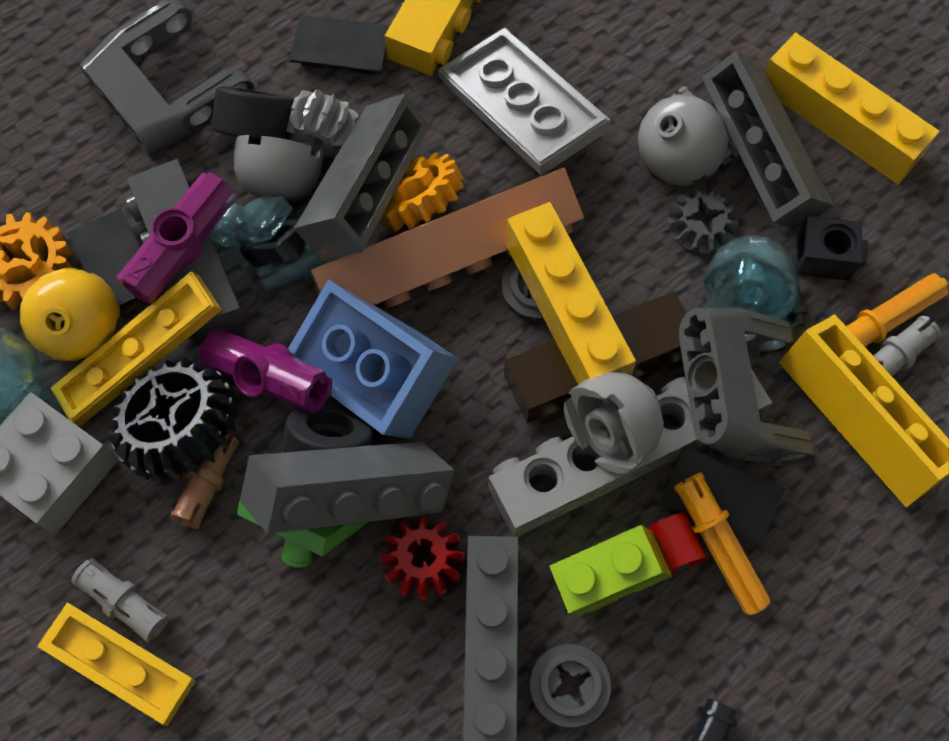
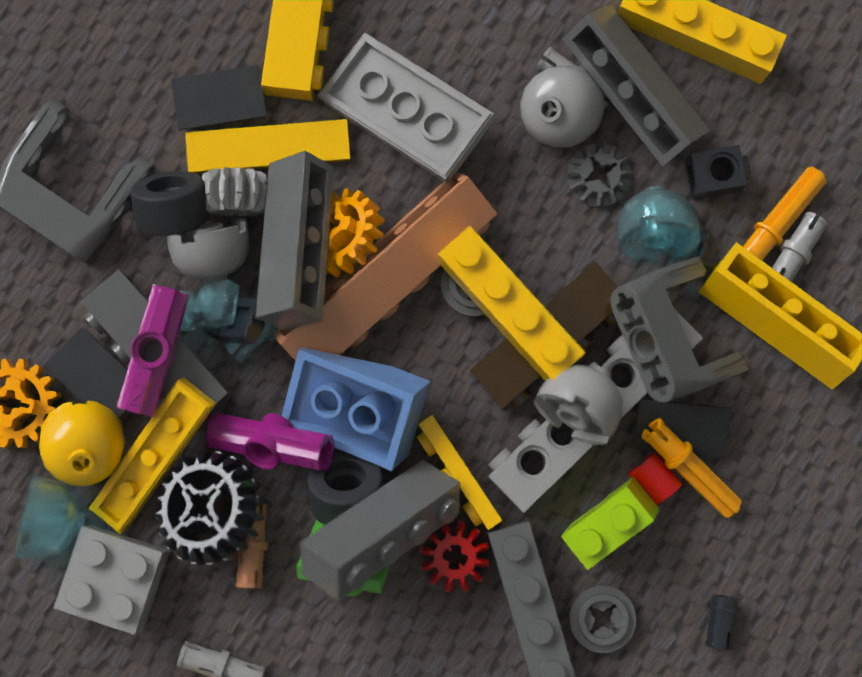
camera: 20 degrees left, 15 degrees up
(436, 108) = (261, 145): none -> yellow tile
(443, 428) = (435, 441): none -> yellow plate

